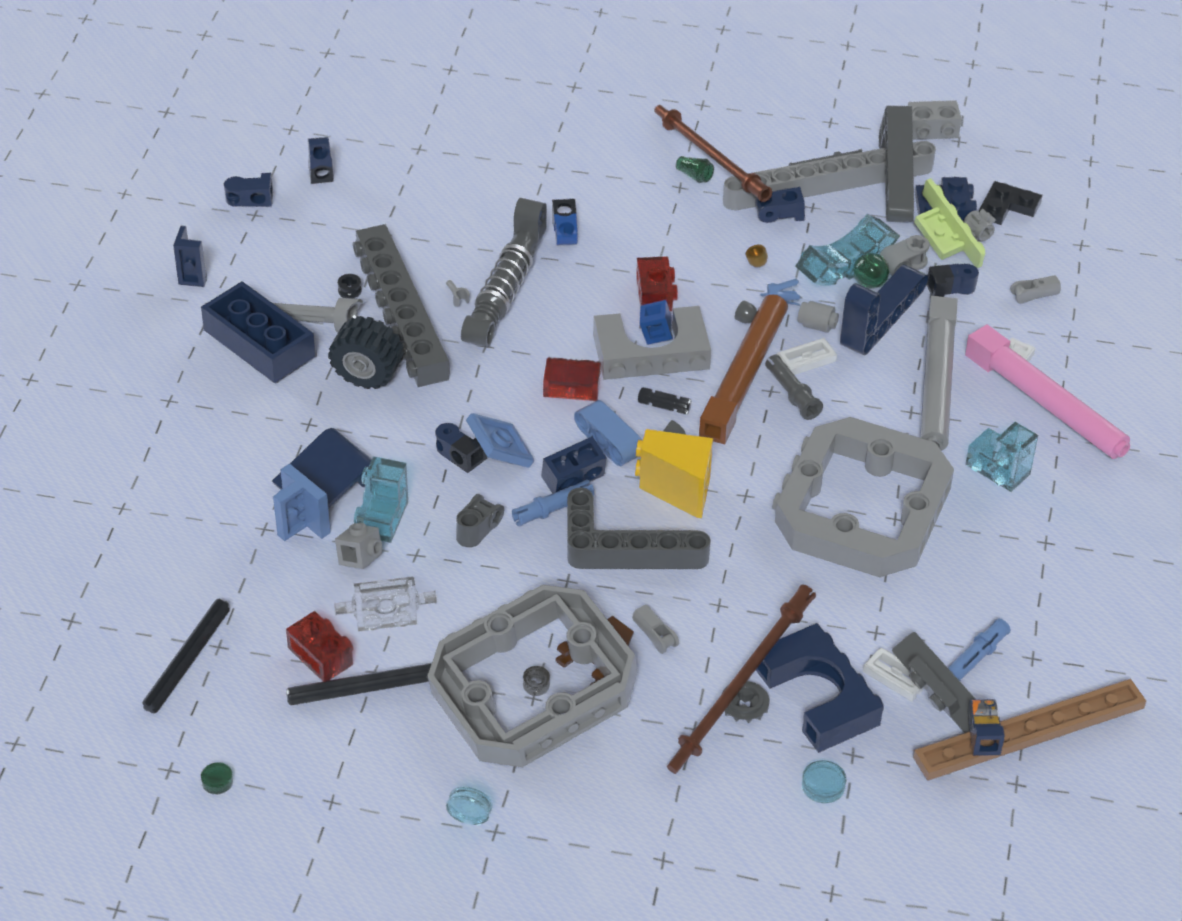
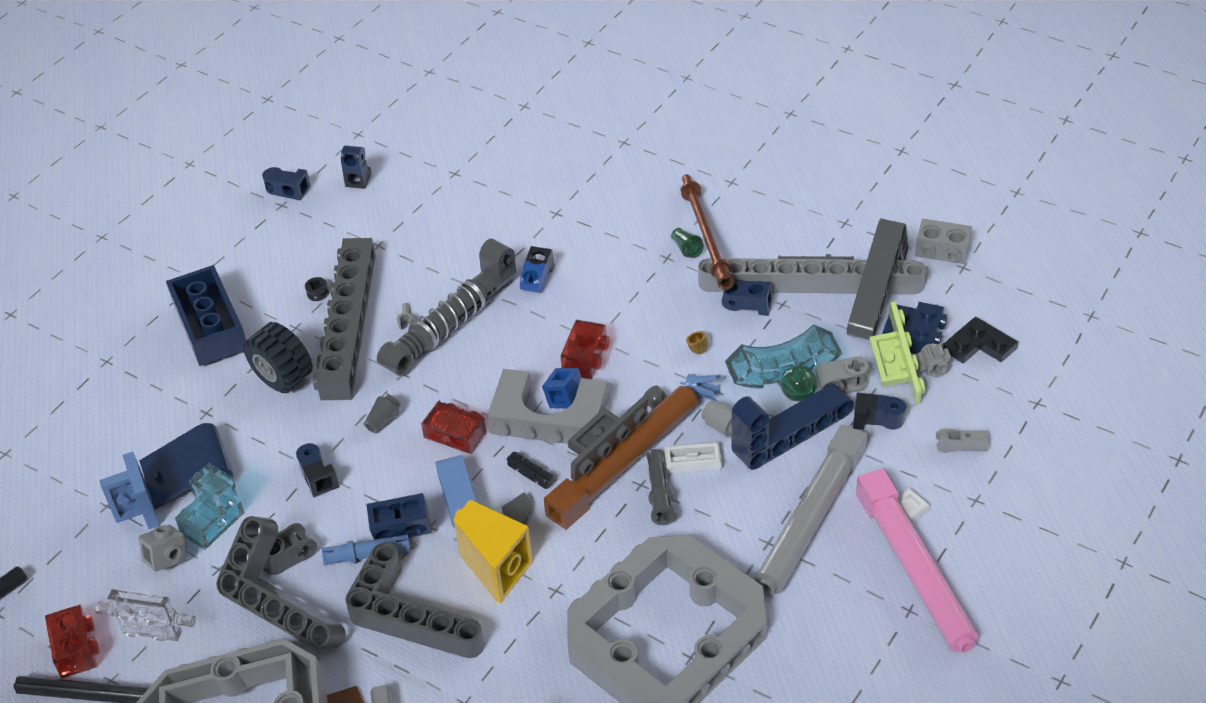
camera: 25 degrees right, 0 degrees up
(189, 260) = (188, 233): dark blue panel -> none
(343, 310) = (288, 313): light grey piece -> none
(492, 382) = (383, 411): none -> dark grey cone
(493, 560) = (249, 584): none -> dark grey beam
(500, 440) = (349, 473): medium blue tile -> none
(725, 351) = (601, 434): none -> dark grey bracket
(1004, 457) = (829, 620): clear light blue brick -> none

